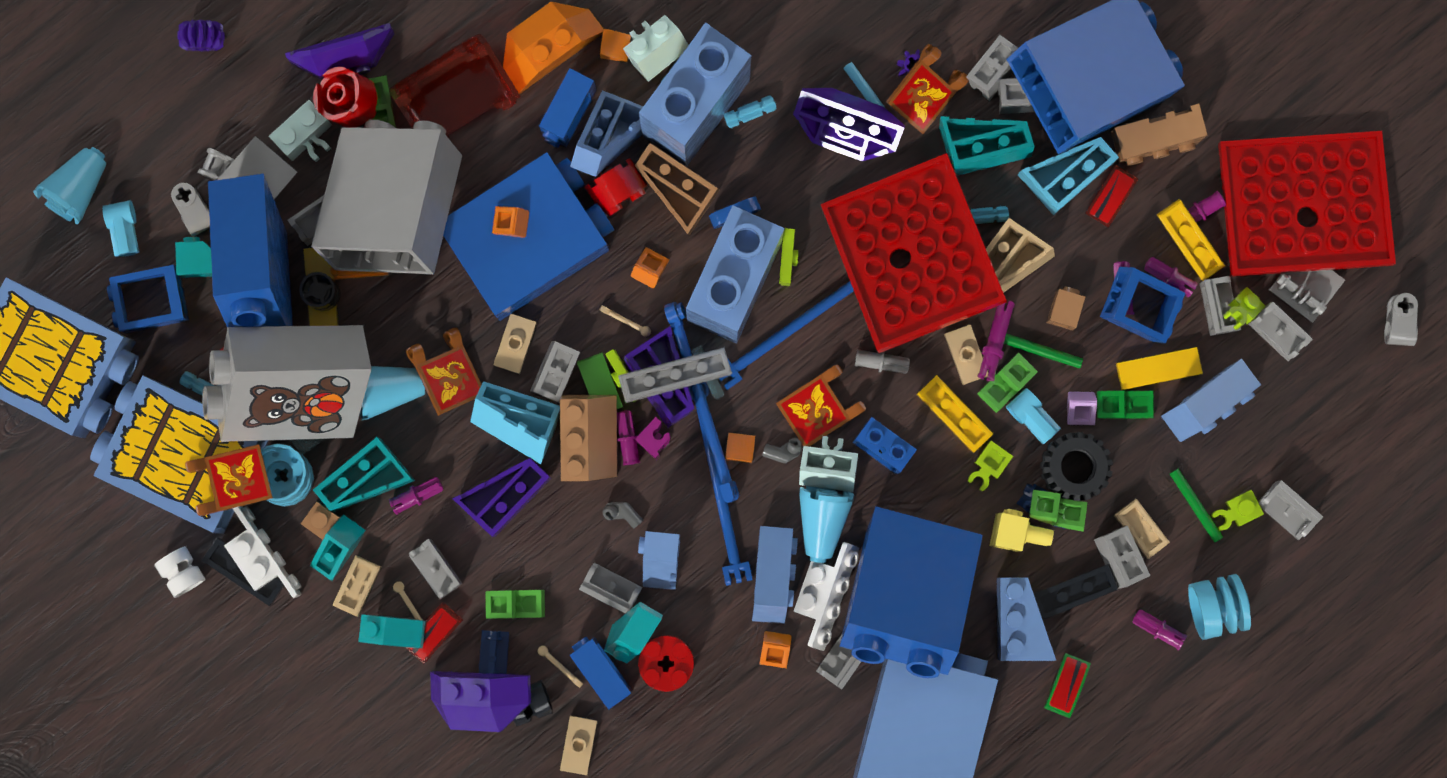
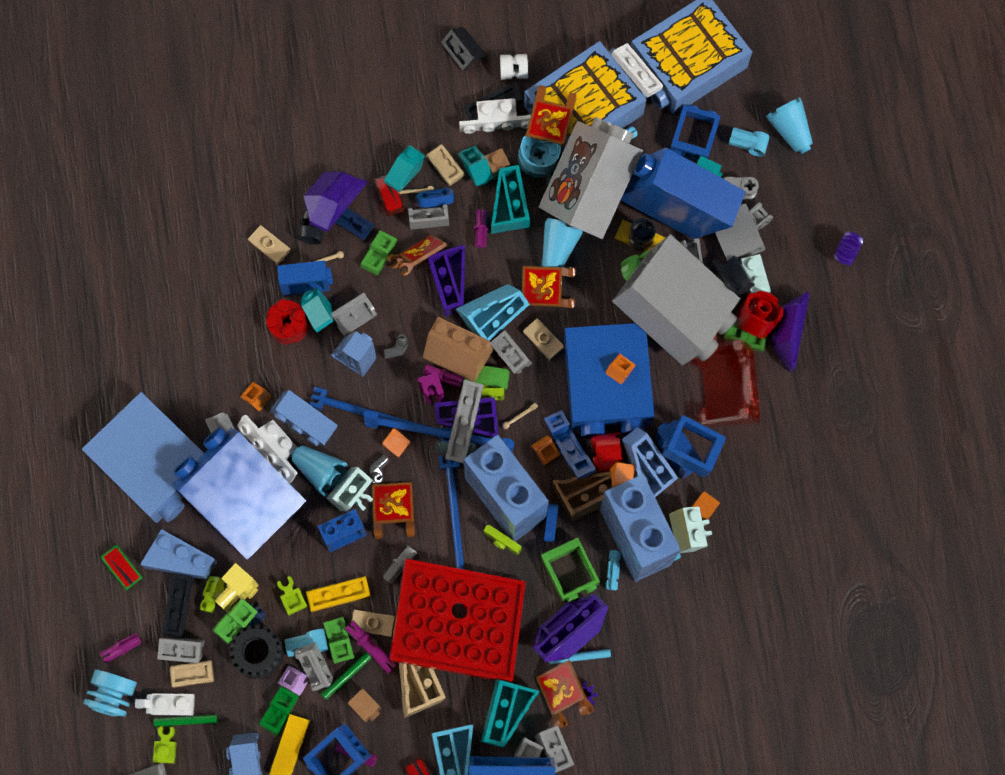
camera: 120 degrees right, 10 degrees down
(108, 407) = (637, 70): none -> white plate
(187, 651) = (462, 47): none -> black panel
(314, 151) = (734, 276): none -> black panel
(365, 284) = (631, 263): none -> bright green piece
(407, 573) = (435, 197): none -> blue beam
(493, 553) = (416, 253): none -> dark orange flag
(547, 41) = (734, 467): orange wedge -> none
(555, 59) = (702, 469): none -> blue window
(632, 238) = (569, 446): none -> blue slope
(639, 152) = (621, 473): none -> orange slope
(763, 182) = (561, 551): none -> bright green window
(988, 215) = (457, 689): medium azure axle -> none
(1036, 559) = (213, 589): none -> lime plate
(1055, 390) = (314, 666): none -> light grey hinge
(1190, 536) = (167, 704): none -> white hinge

